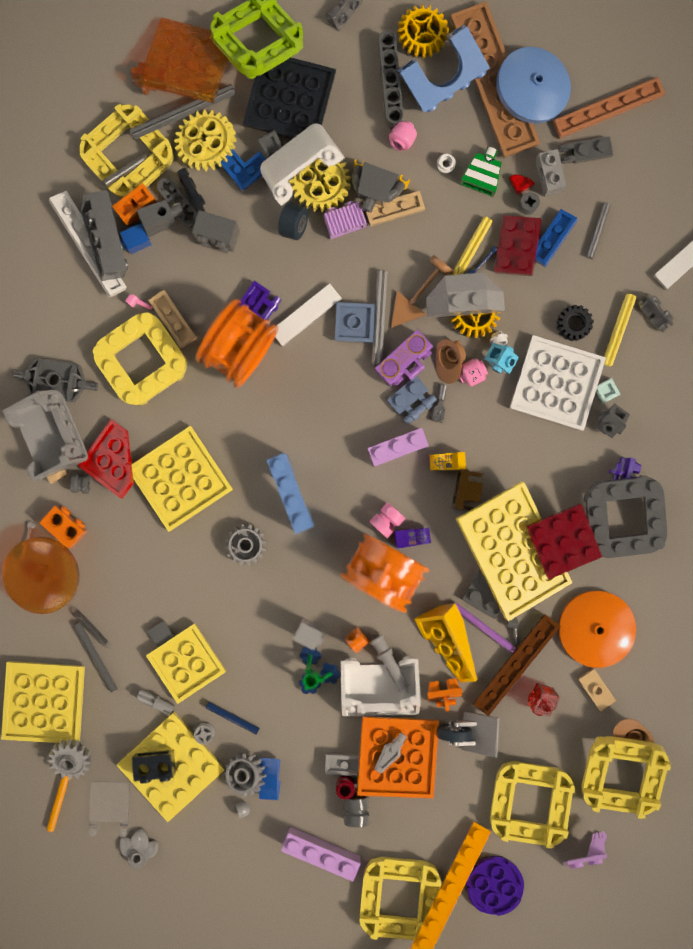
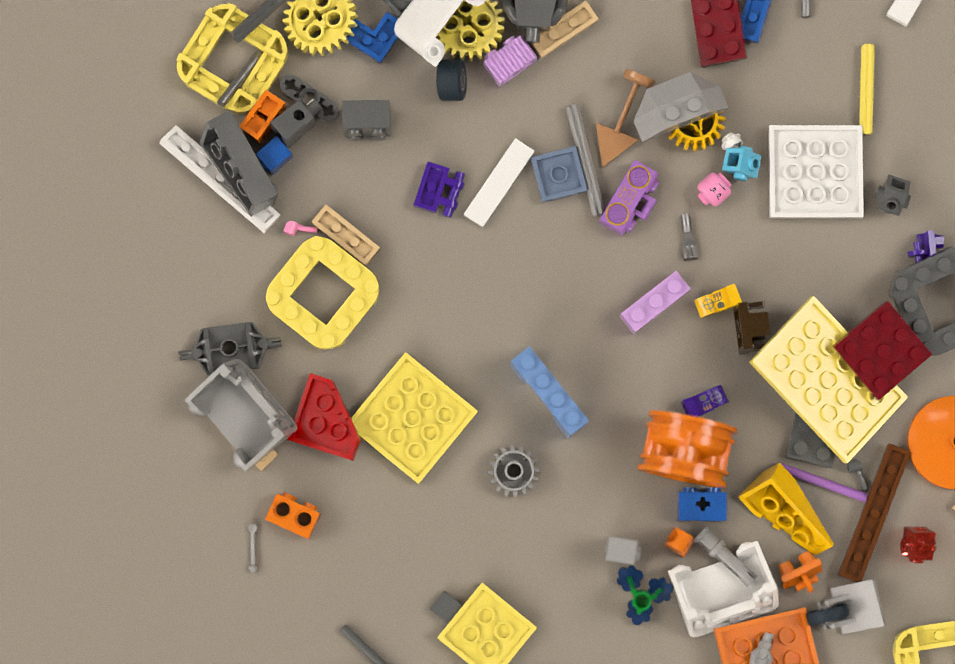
camera: 20 degrees left, 5 degrees down
(41, 575) = (269, 595): clear orange dish -> none
(80, 483) = (297, 460): dark grey wheel -> none
(93, 627) = (358, 622): flat silver piece -> none
(190, 188) = (323, 81): black plate -> none
(236, 343) = (433, 238): orange wheel -> none
(372, 619) = (689, 511): none -> blue brick
(387, 520) = (669, 390): bright pink wheel -> none
(407, 396) = (647, 239): sand blue plate -> none
(449, 360) = (682, 184): medium nougat piece -> none
(472, 246) = (667, 45): light yellow axle -> none
(493, 249) = (692, 42): dark blue hinge -> none
(577, 311) = (813, 110): black tyre -> none
(607, 390) = (876, 163): light aqua tile -> none
(652, 306) = (911, 60): flat silver hinge -> none

